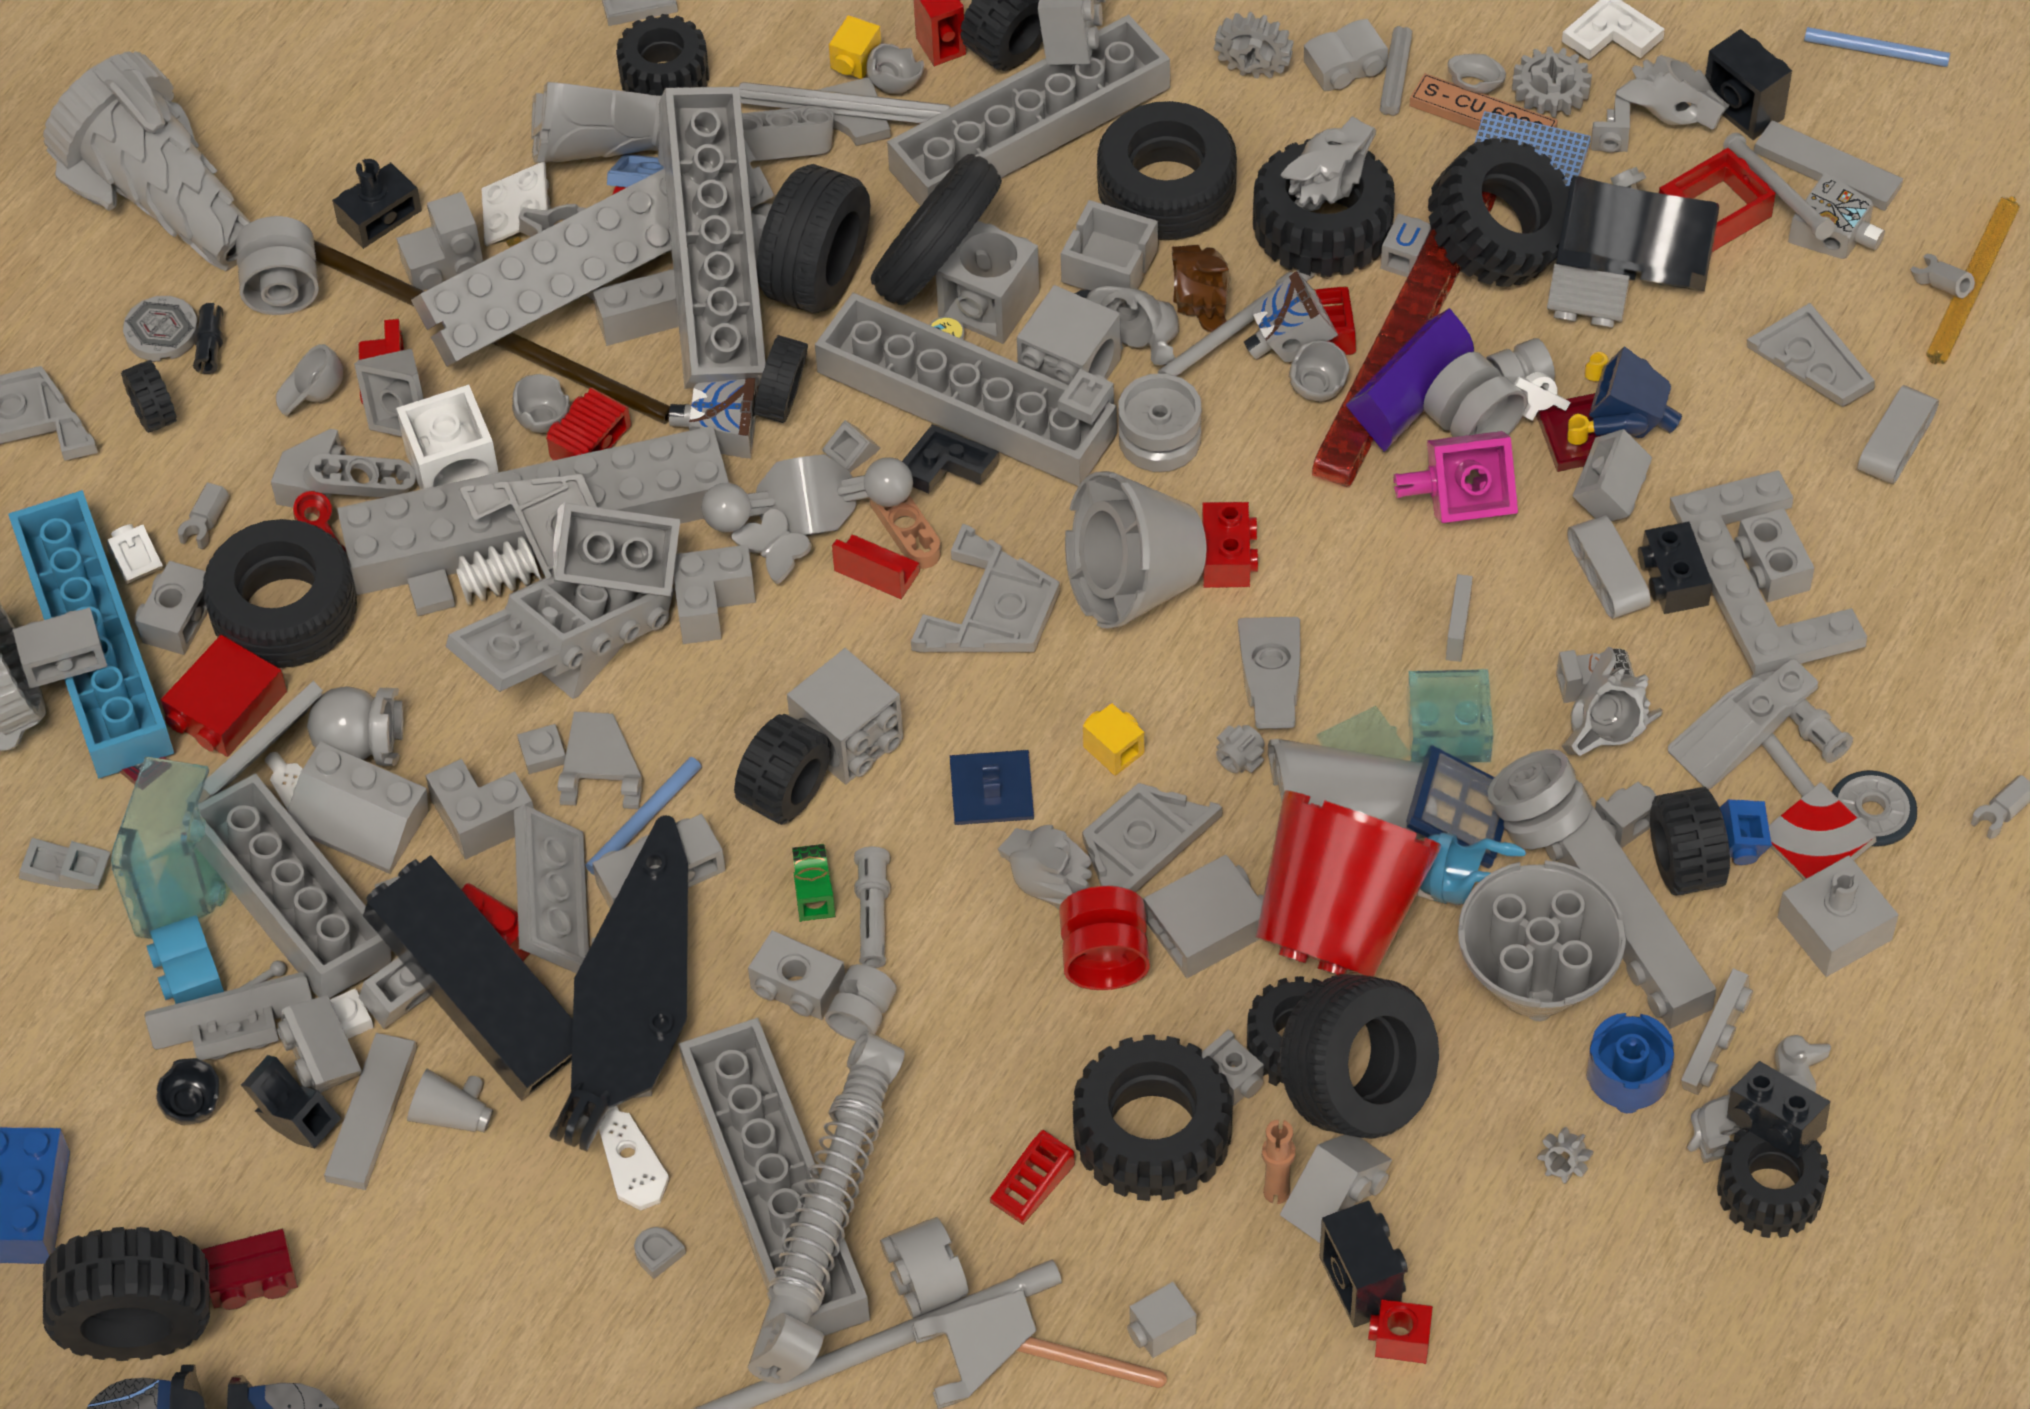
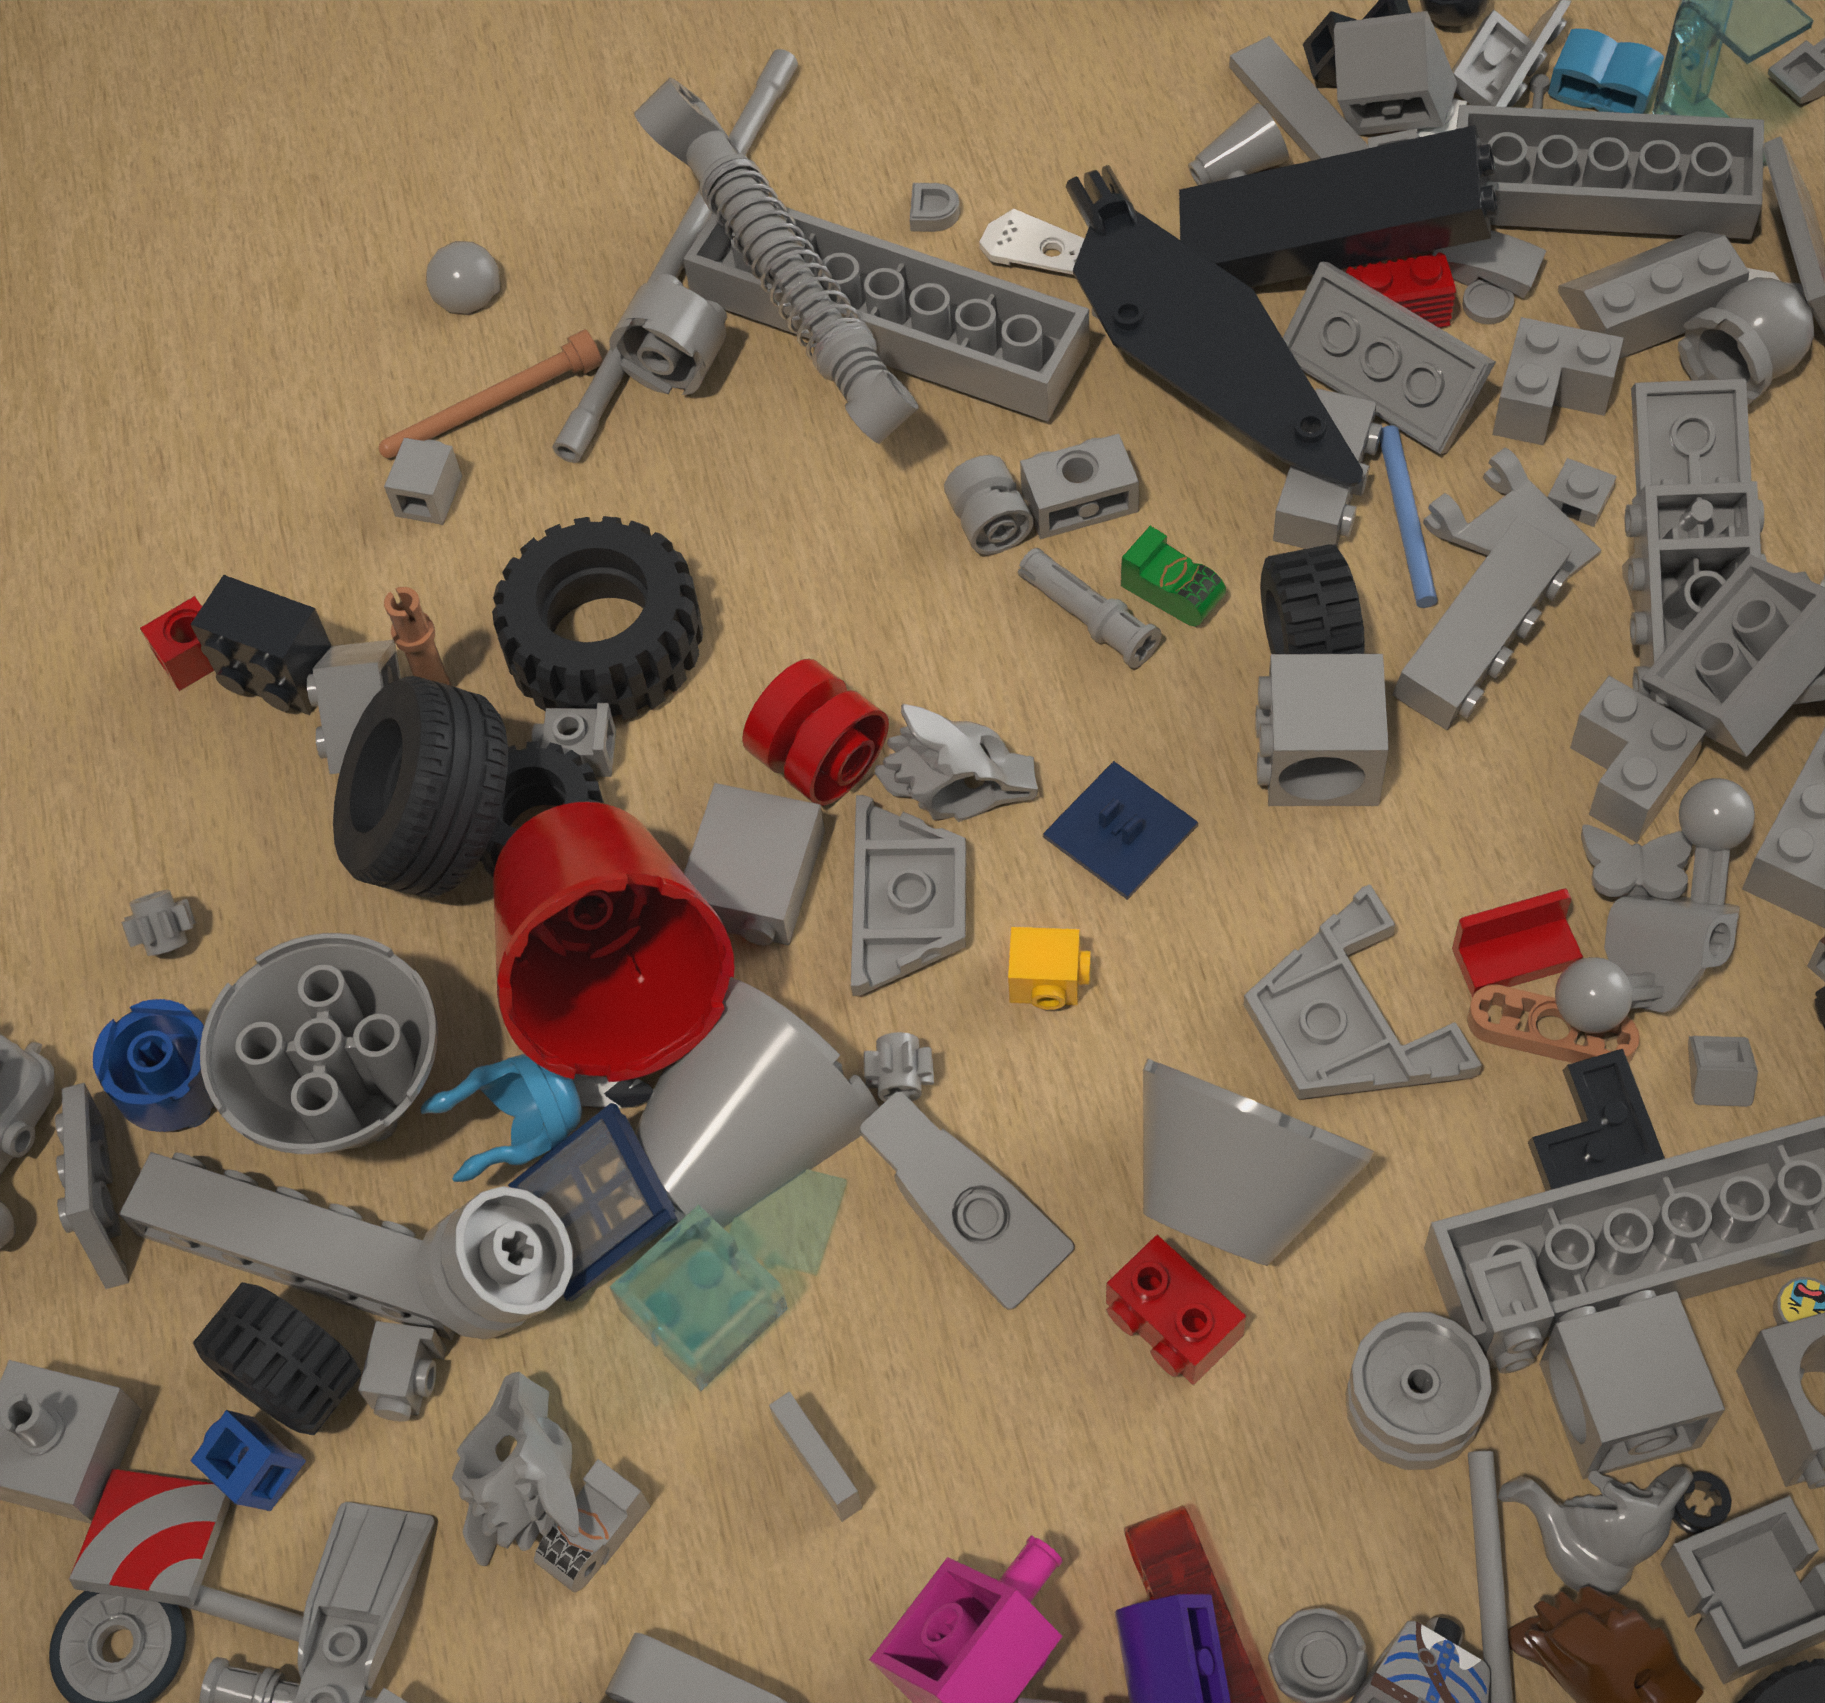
camera: 140 degrees right, 5 degrees up
(691, 711) = (1482, 623): none -> light grey brick
(979, 1339) = (566, 331): light grey flag -> none
(1041, 1145) = (682, 535): red slope -> none

